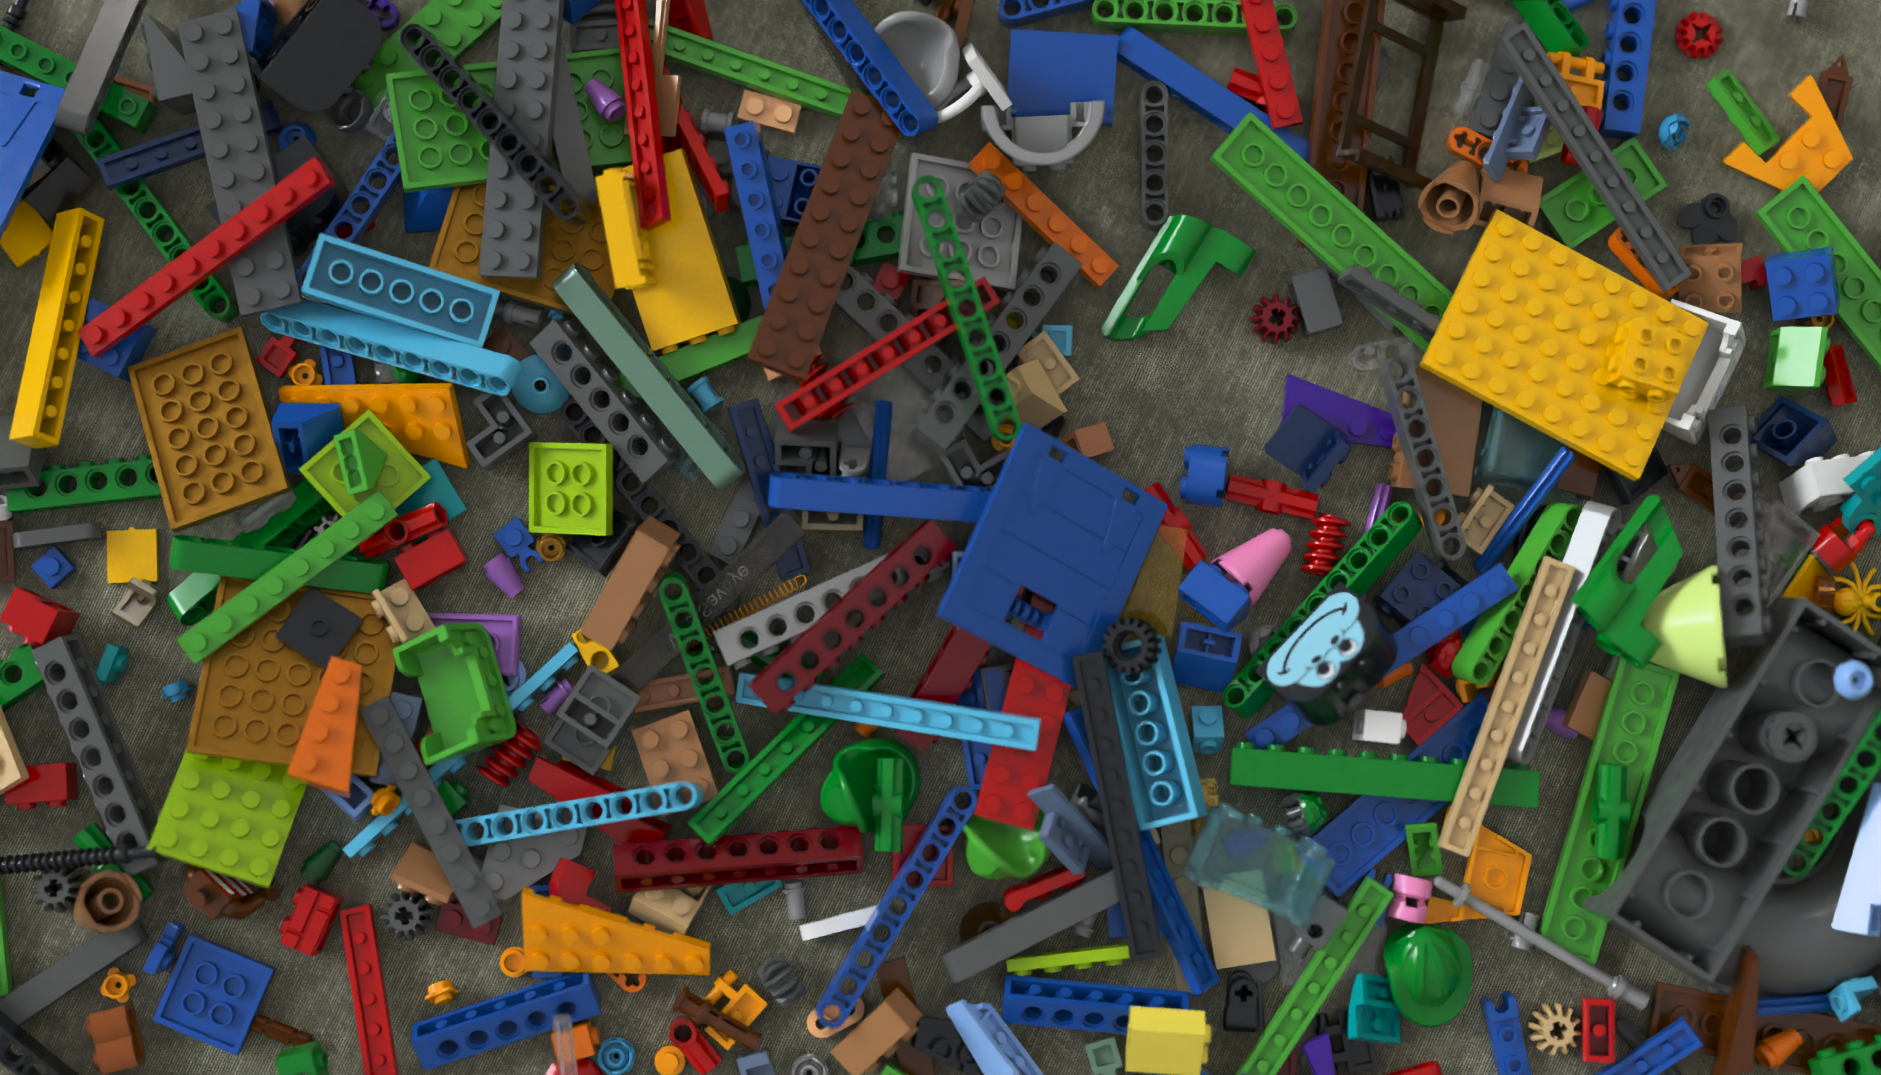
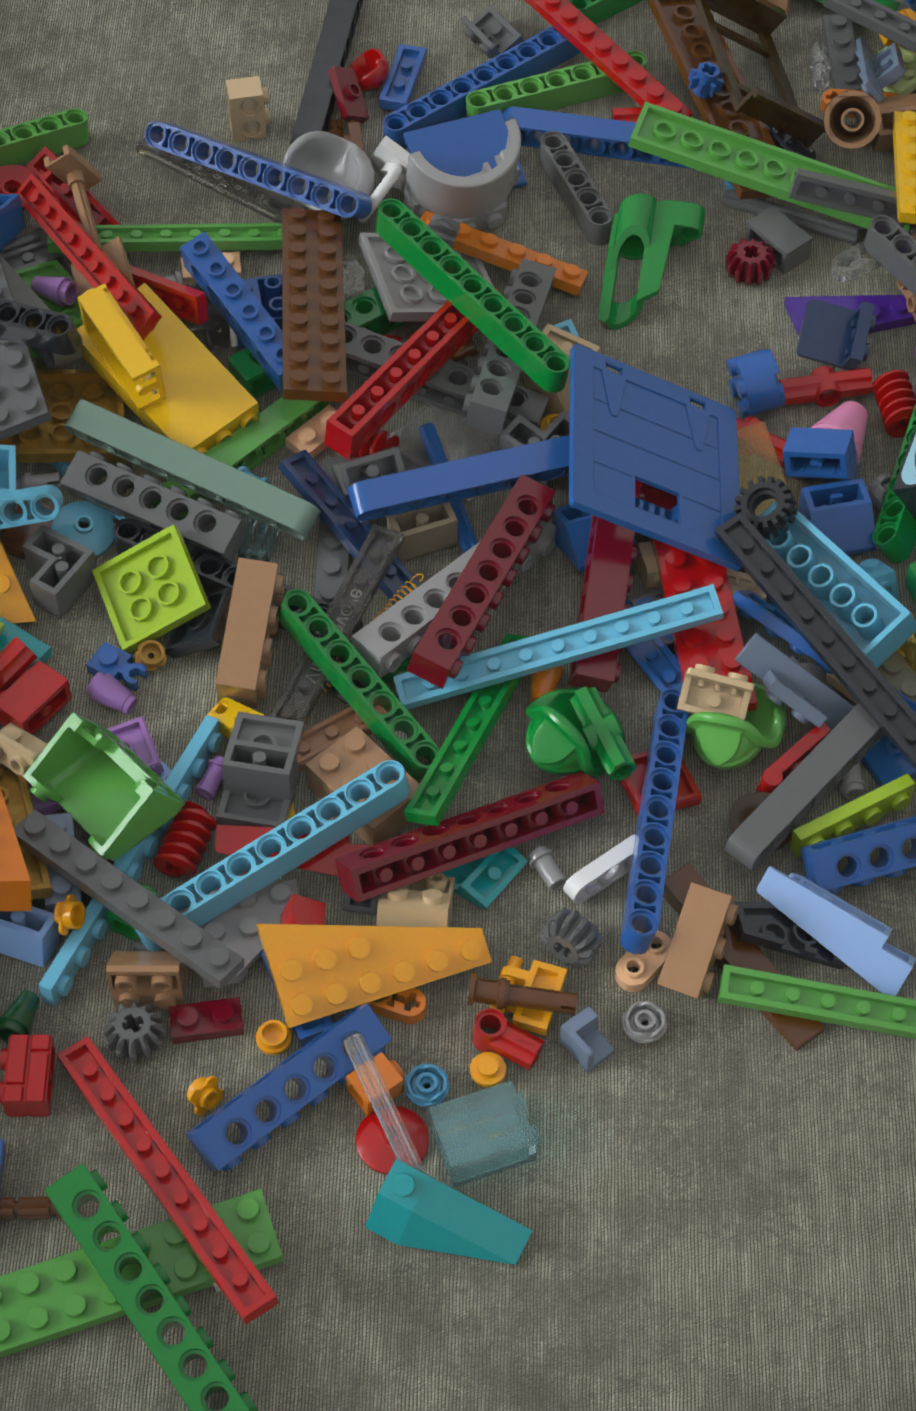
camera: 20 degrees left, 30 degrees down
(994, 820) = (714, 693): none -> tan bracket
(1324, 102) = (705, 80): none -> blue gear

